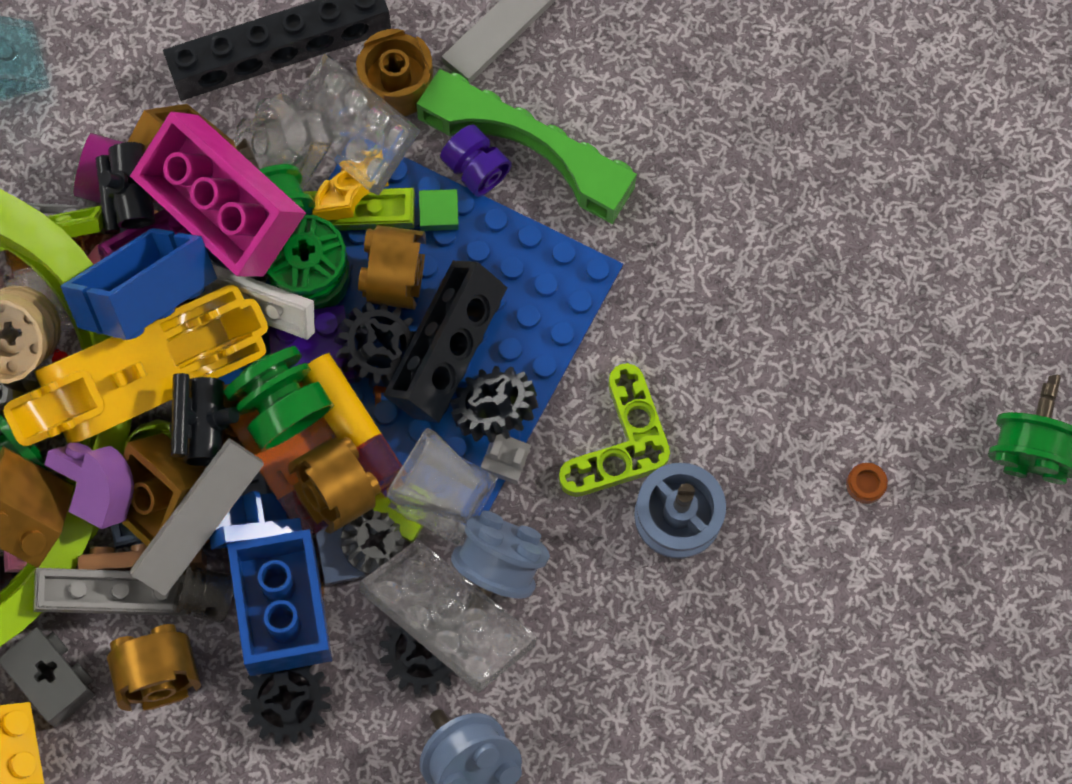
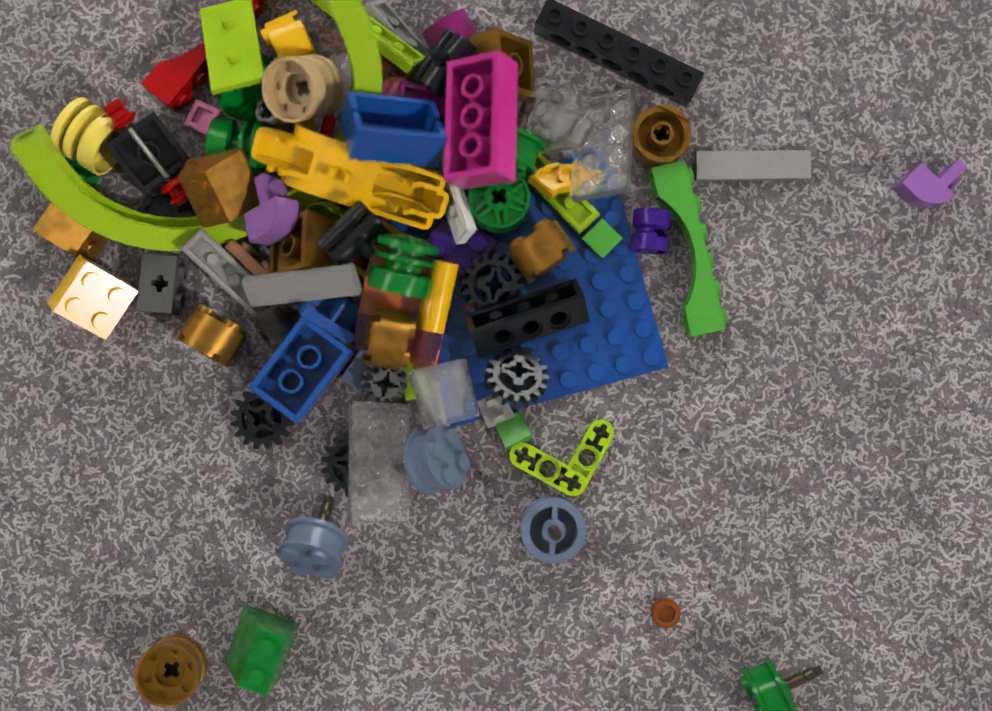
camera: 50 degrees right, 15 degrees up
(544, 462) = (514, 431): none -> bright green tile

